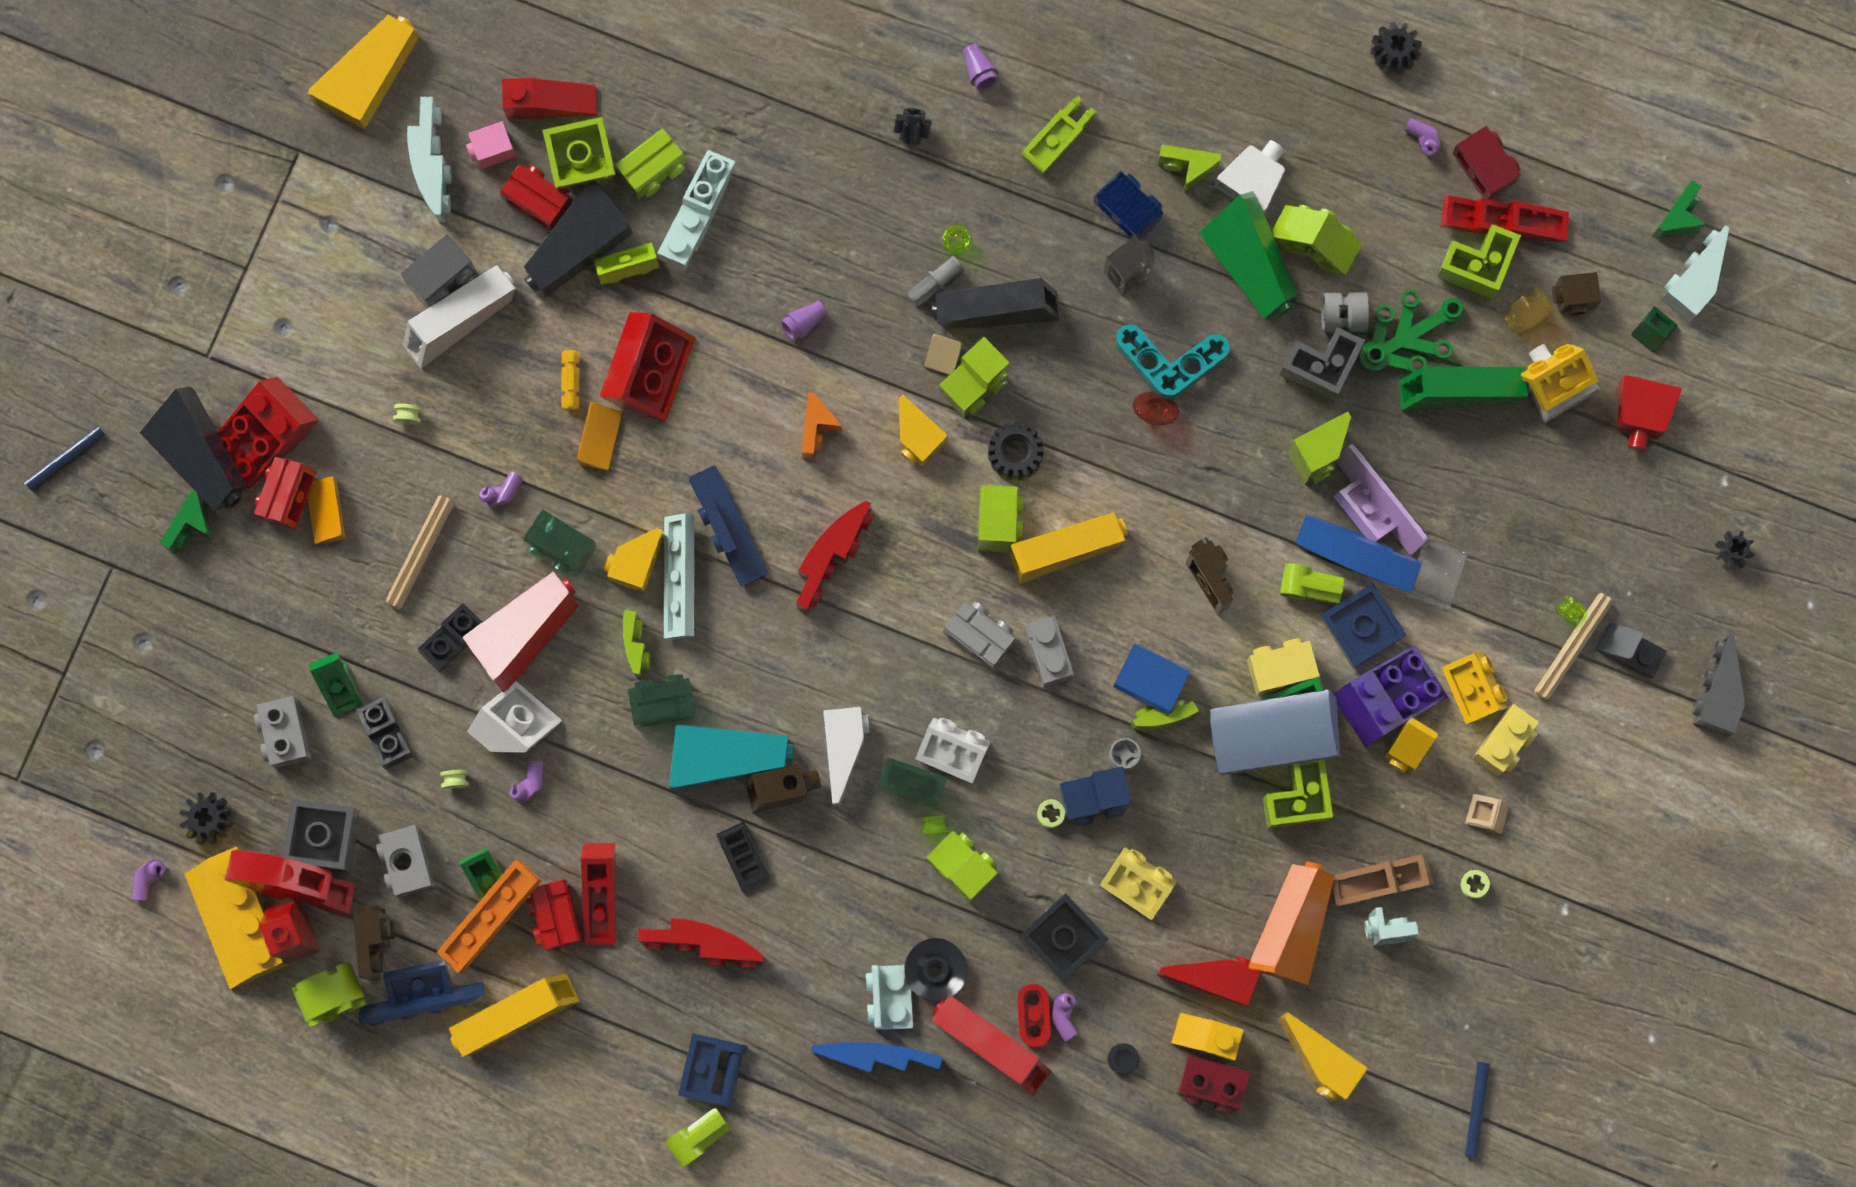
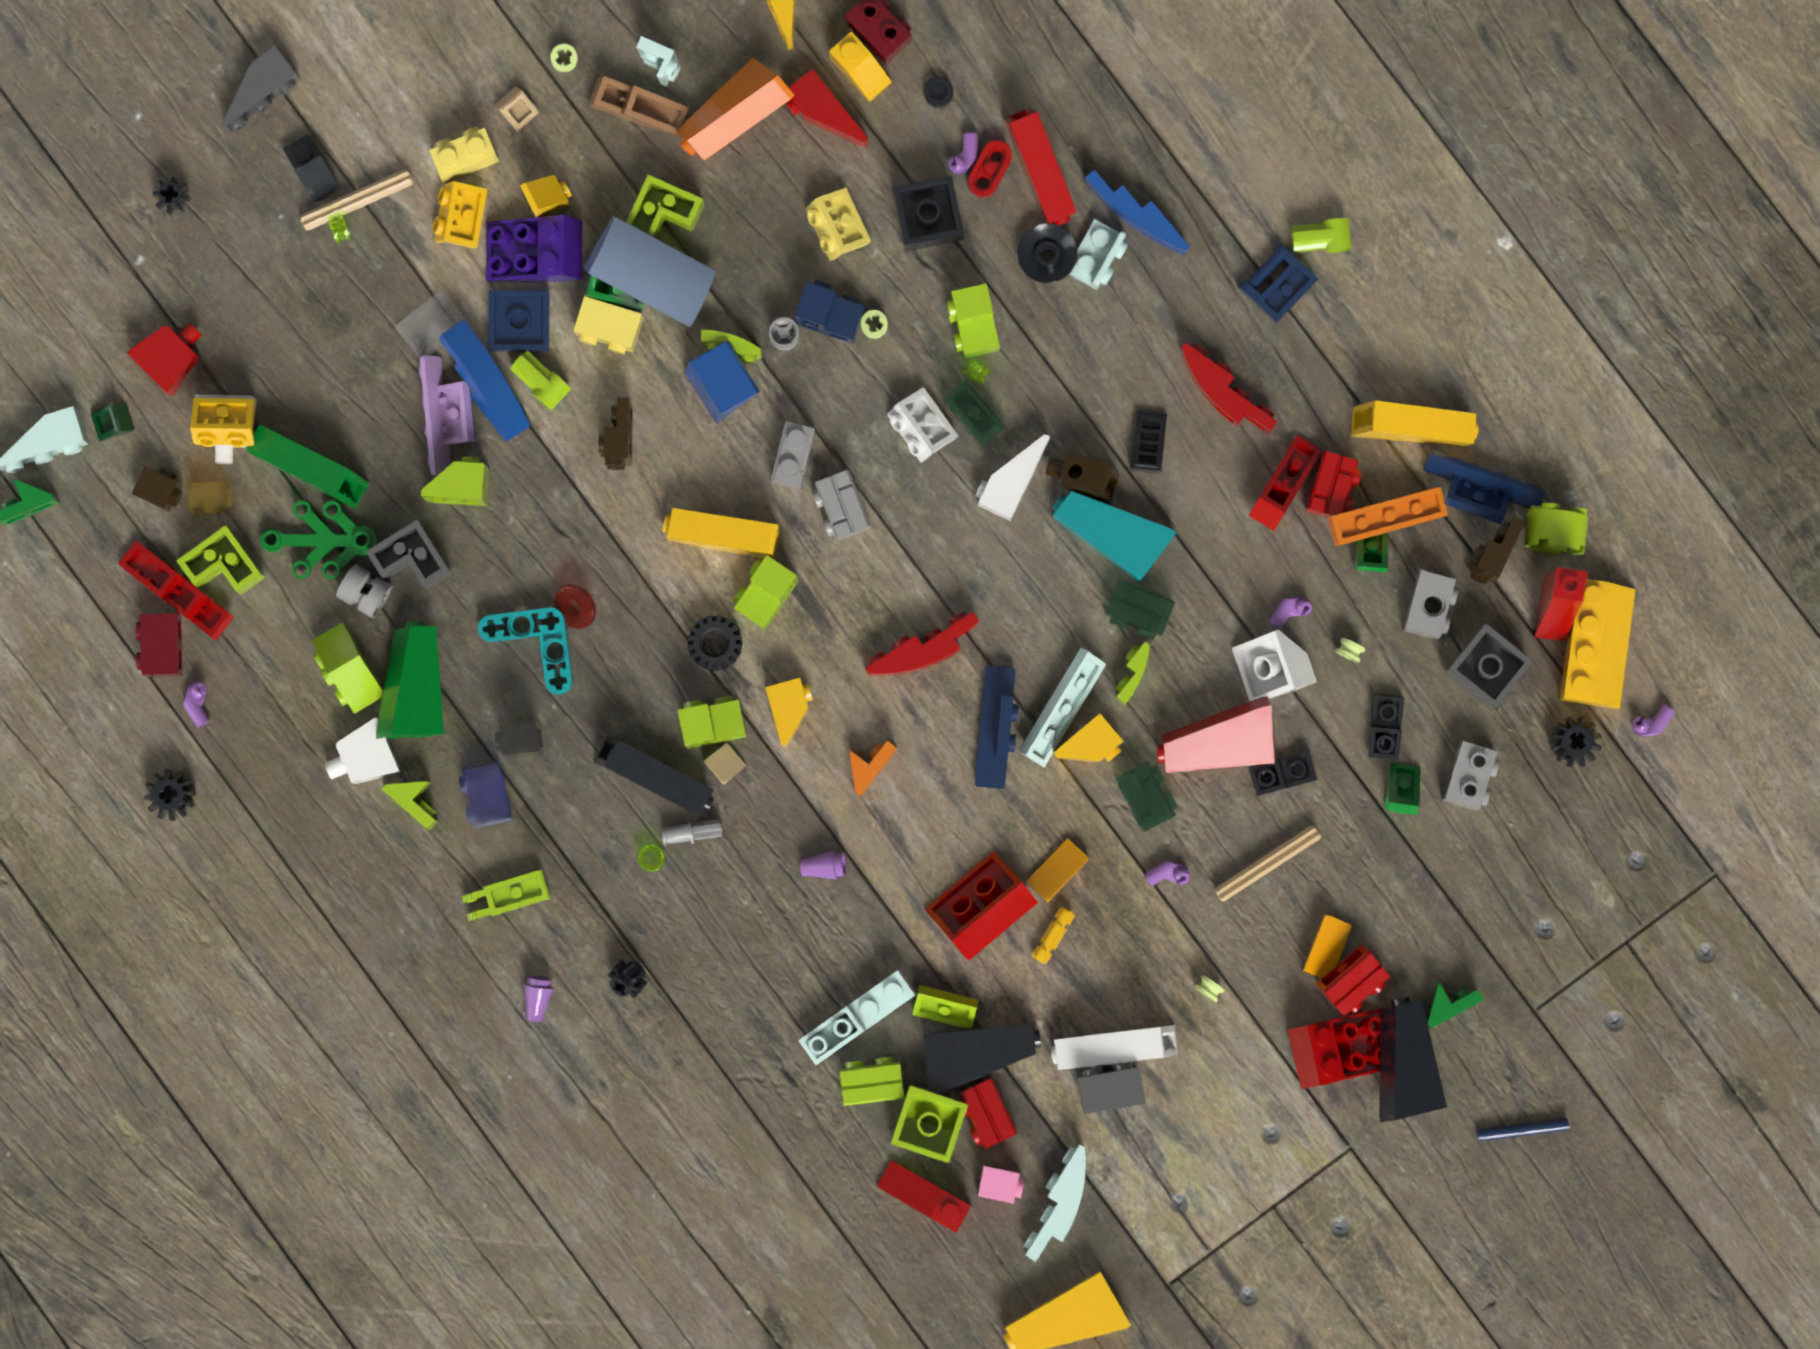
camera: 145 degrees left, 5 degrees up
(290, 878) = (1535, 641): red slope -> none

